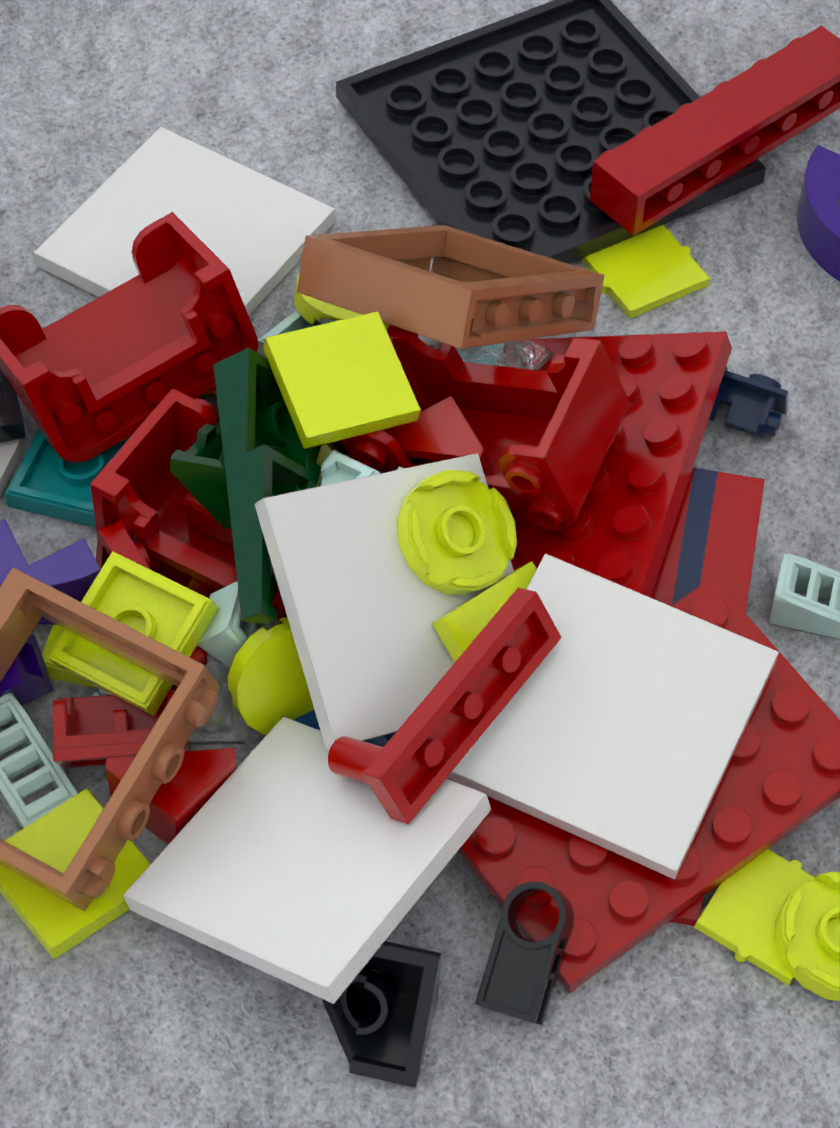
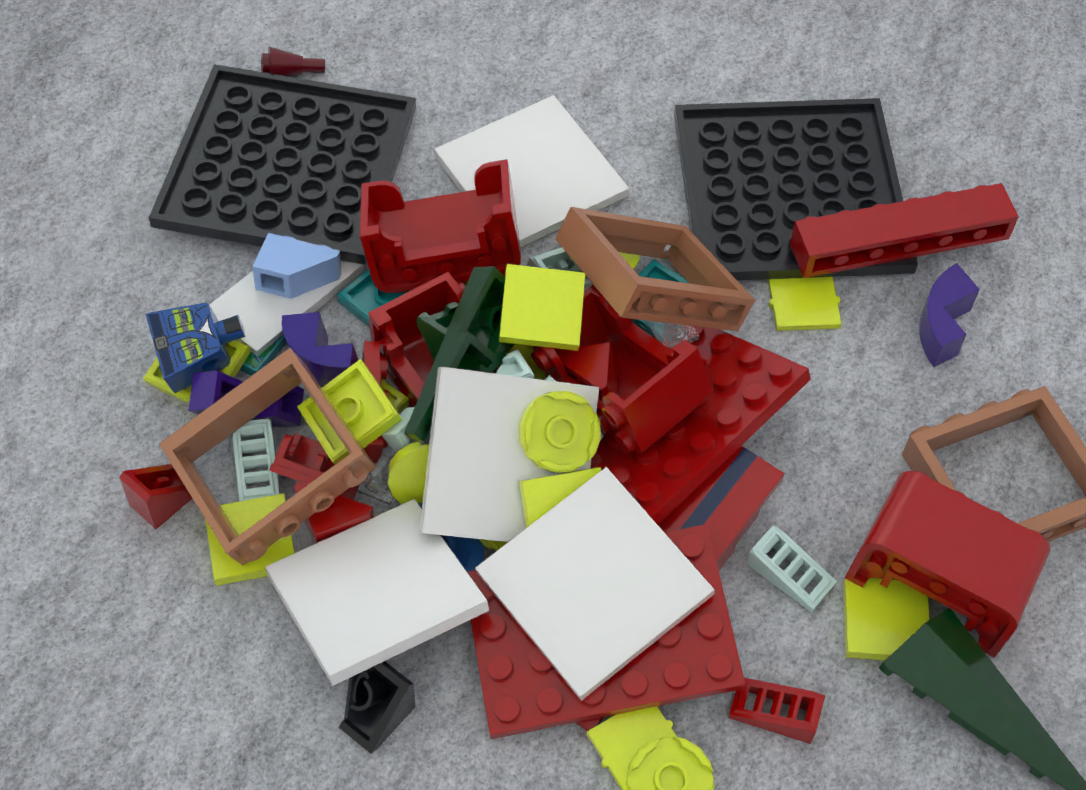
camera: 25 degrees right, 5 degrees up
(454, 711) = (496, 541): red piece -> none
(522, 972) = (463, 713): black piece -> none
(751, 403) = (816, 417): dark blue hinge -> none

